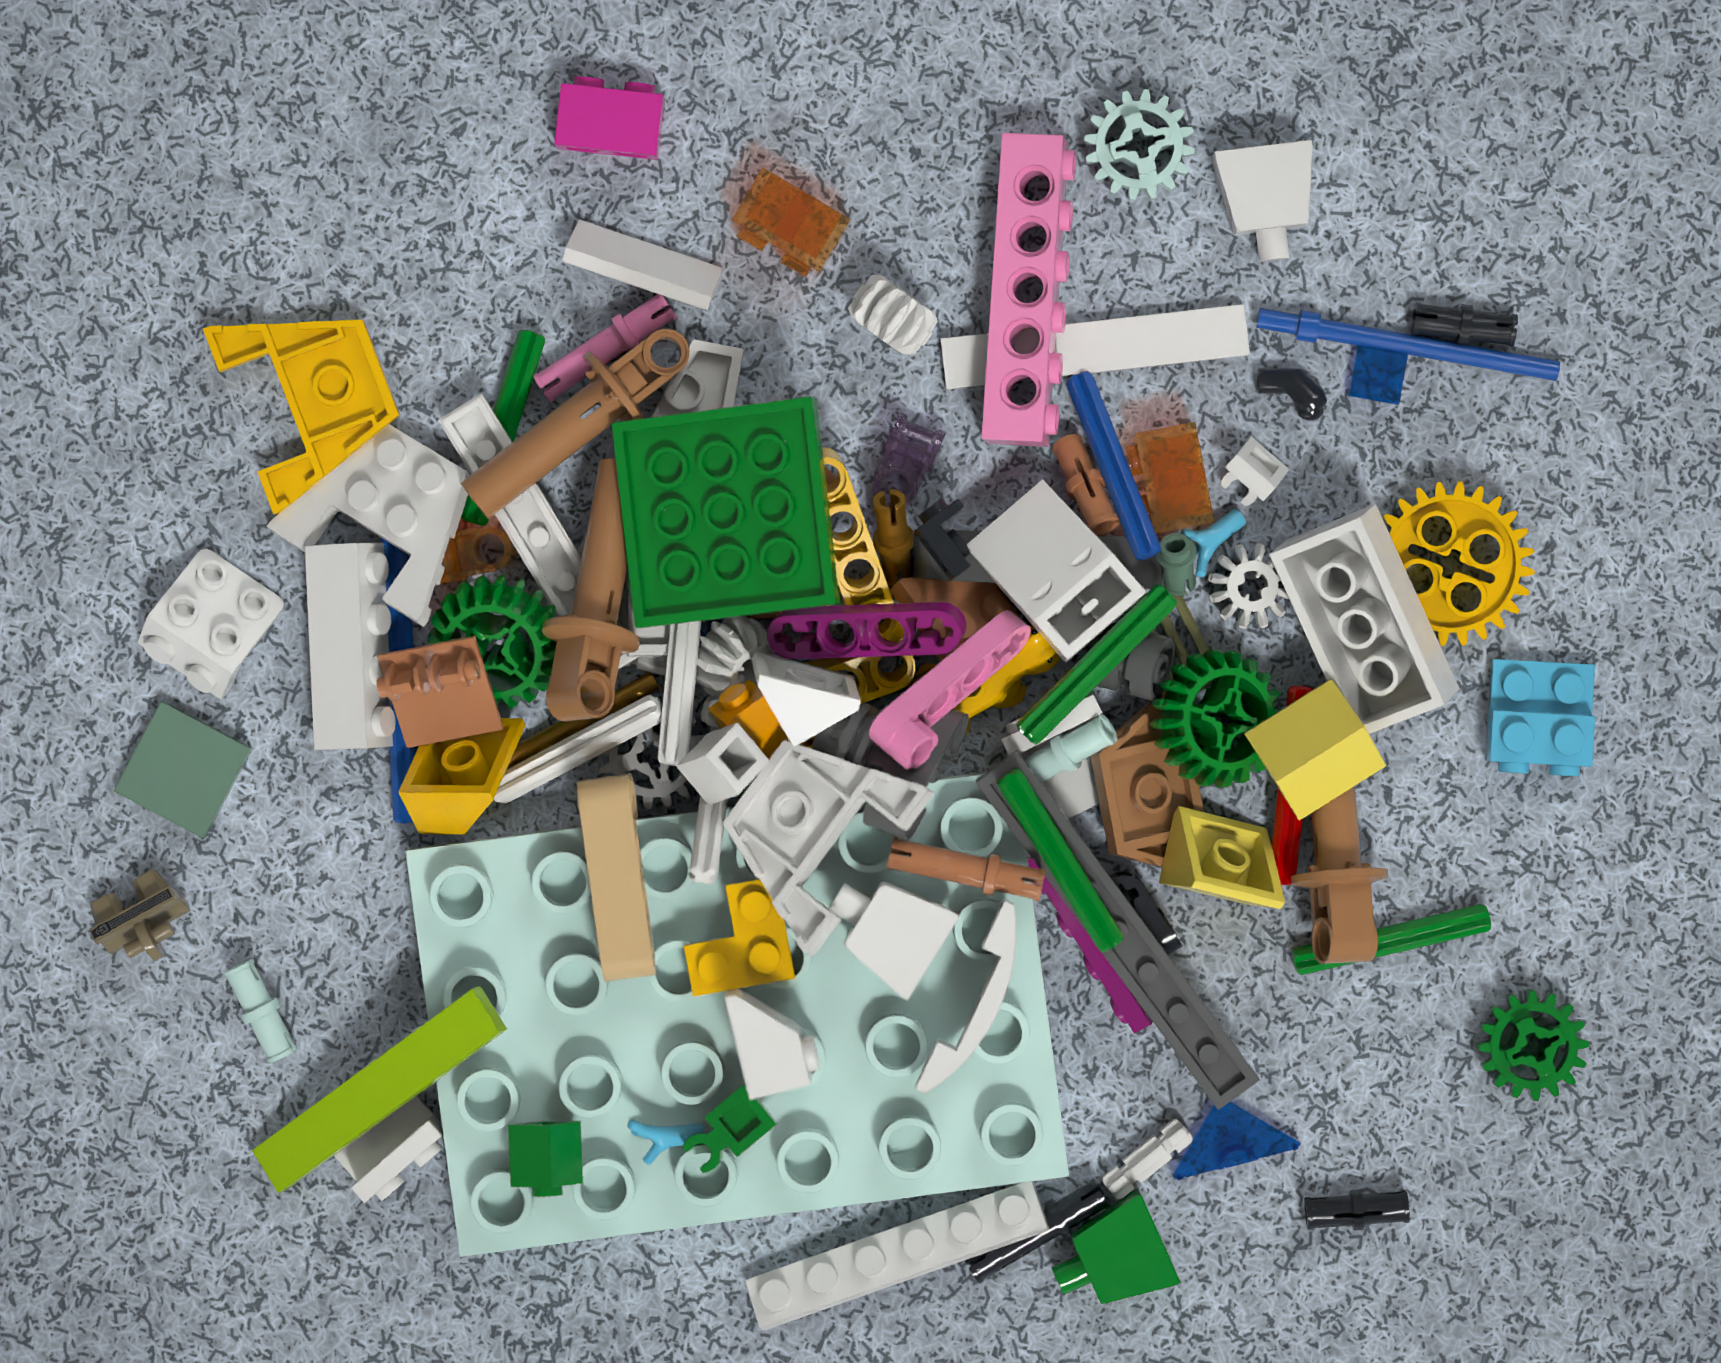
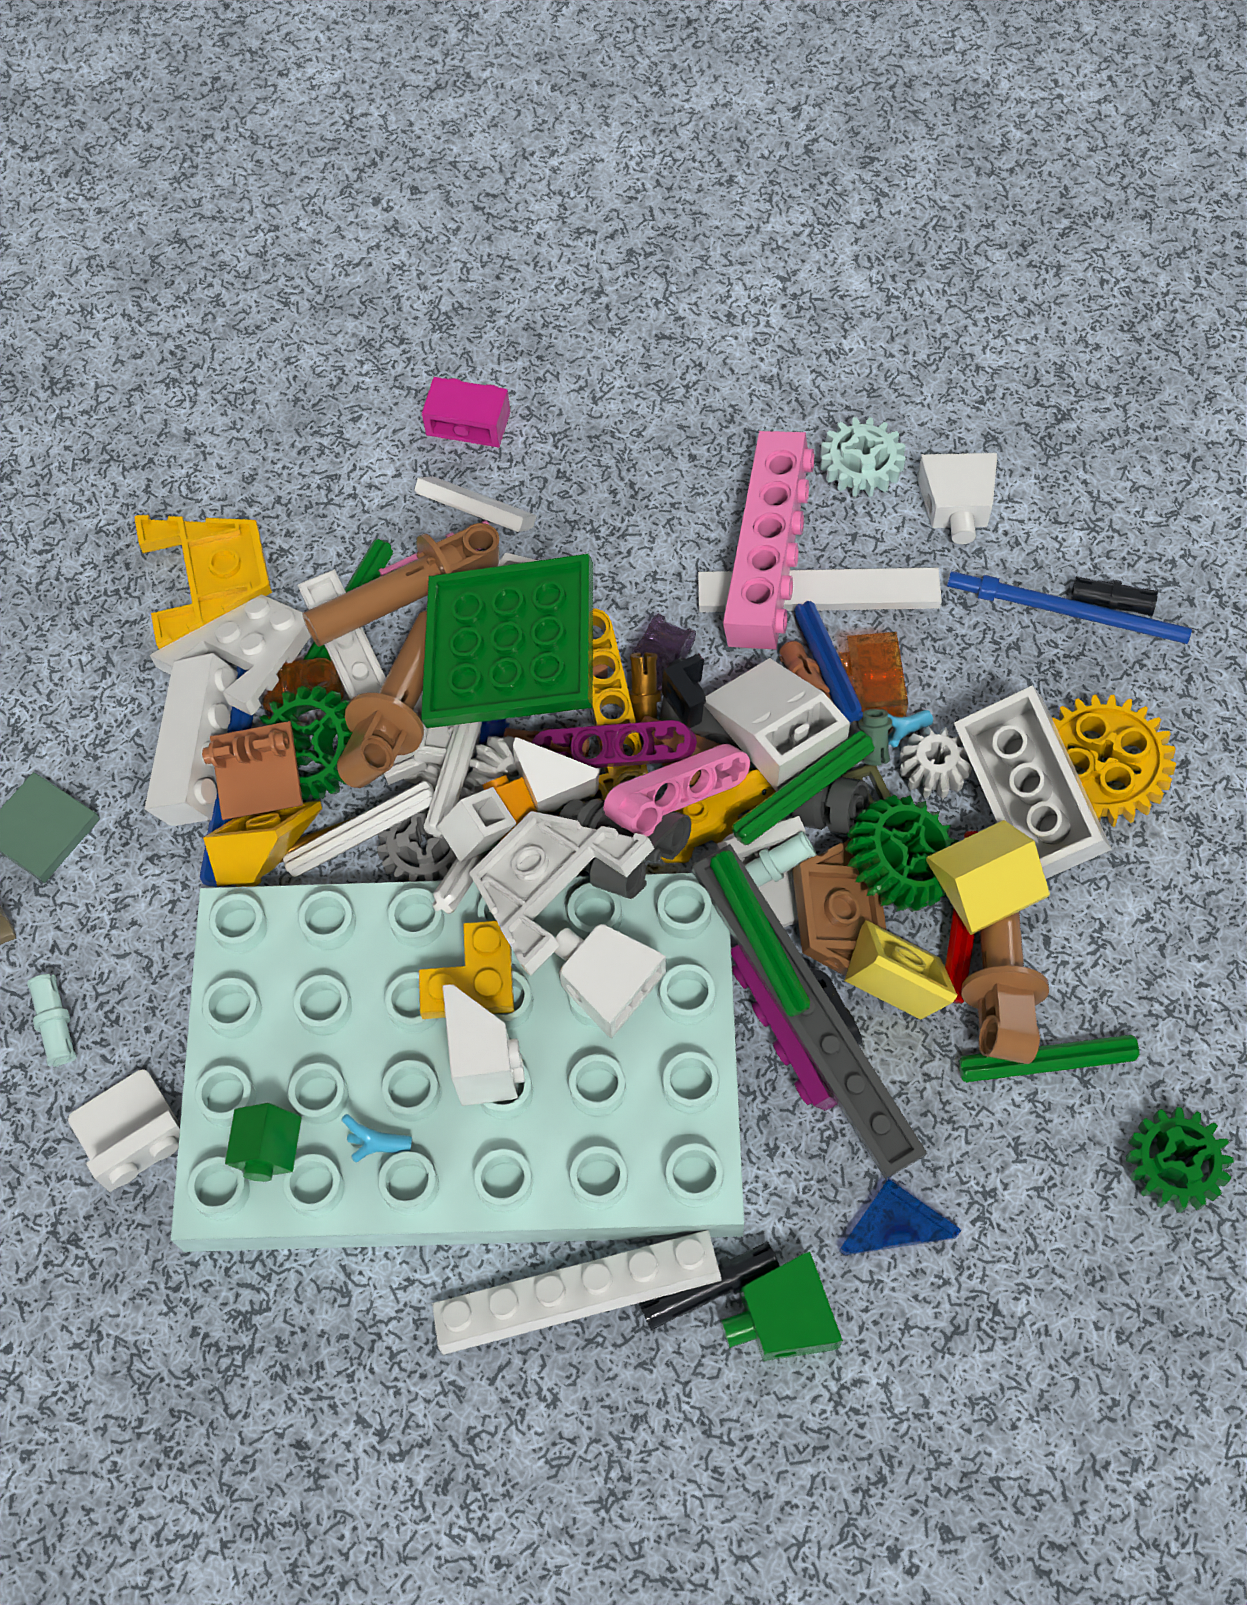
camera: 10 degrees right, 25 degrees down
(209, 622) = (82, 714): white bracket -> none
(379, 1089) = (131, 1081): lime tile -> none
(616, 877) = (369, 921): tan beam -> none
(735, 1125) = (441, 1130): green plate -> none
(789, 223) = (592, 484): clear orange brick -> none
(892, 314) = (662, 544): white gear -> none
(947, 1058) = (642, 1086): white slope -> none
(966, 869) = (682, 931): nougat pin -> none
(1147, 1159) = (818, 1229): white axle -> none
(1256, 470) = (942, 679): white tile -> none
(1298, 386) = (975, 625): black arm -> none
(1356, 1209) = (1046, 1297): black pin -> none
(1377, 375) = (1043, 627): clear blue tile -> none
(1540, 716) = (1181, 887): medium azure plate -> none

